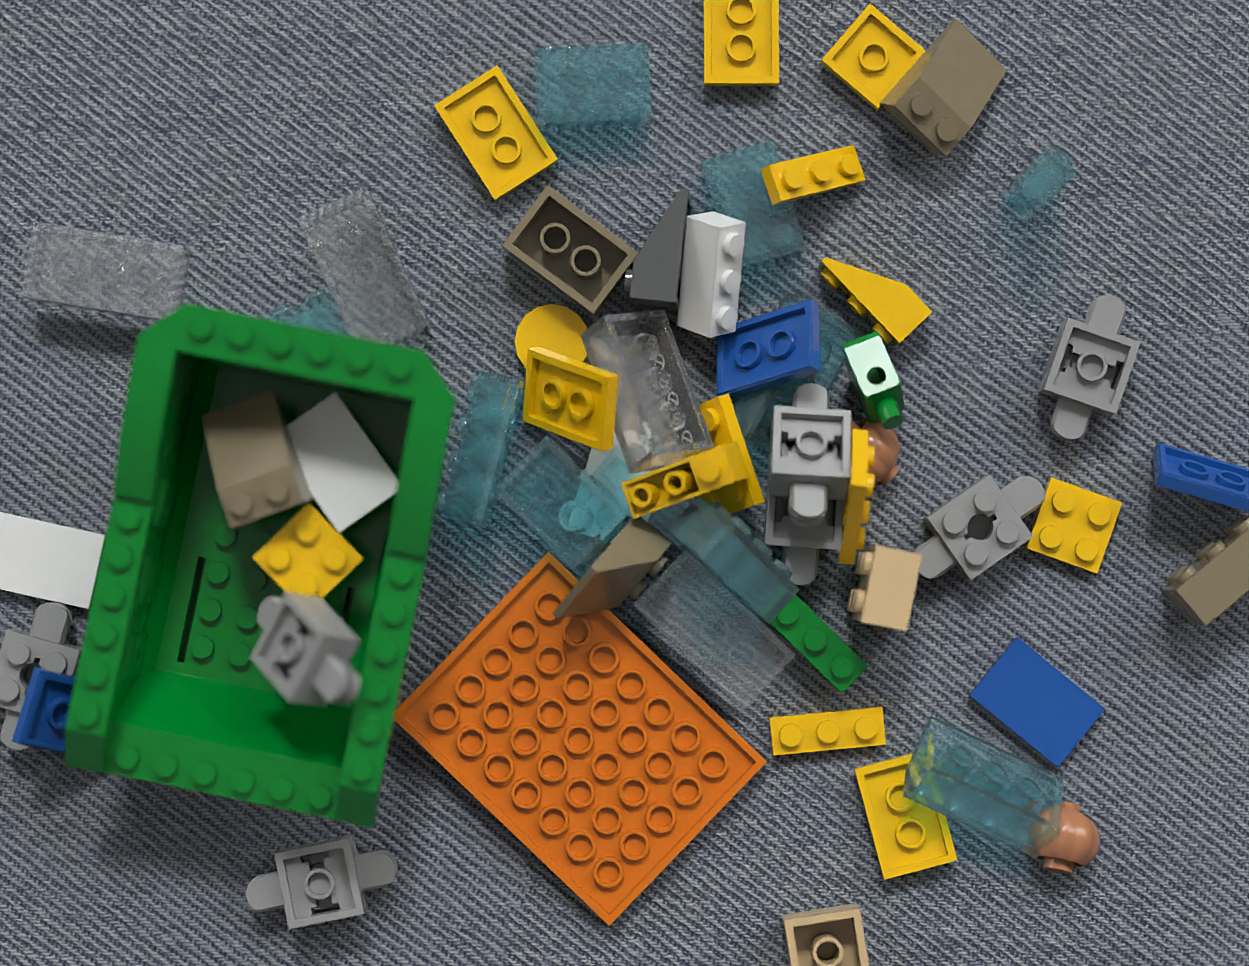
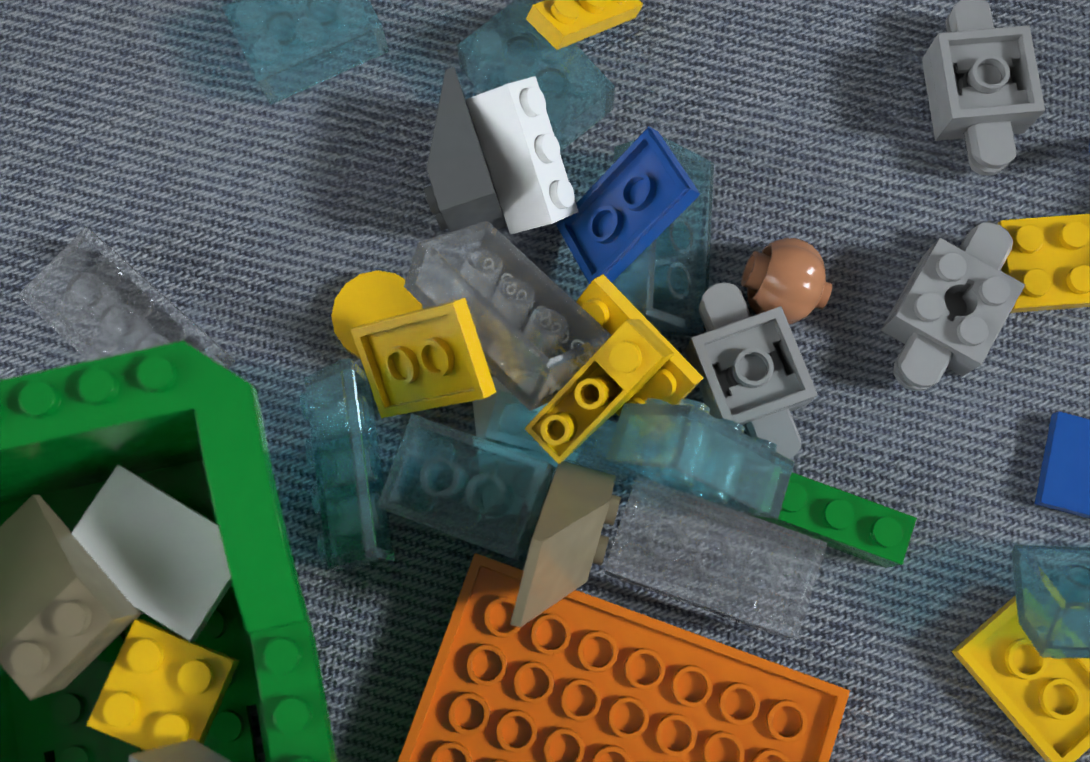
camera: 25 degrees left, 10 degrees down
(496, 133) = (221, 122): yellow plate -> none
(570, 251) = (352, 204): dark tan brick -> none
(809, 454) = (733, 297): light grey brick -> none
(827, 730) = (898, 620): yellow plate -> none
(855, 506) = (807, 307): yellow plate -> none
(874, 380) = (760, 190): green torso -> none
(884, 586) = (894, 412): tan brick -> none
(885, 301) = (721, 113): yellow slope -> none

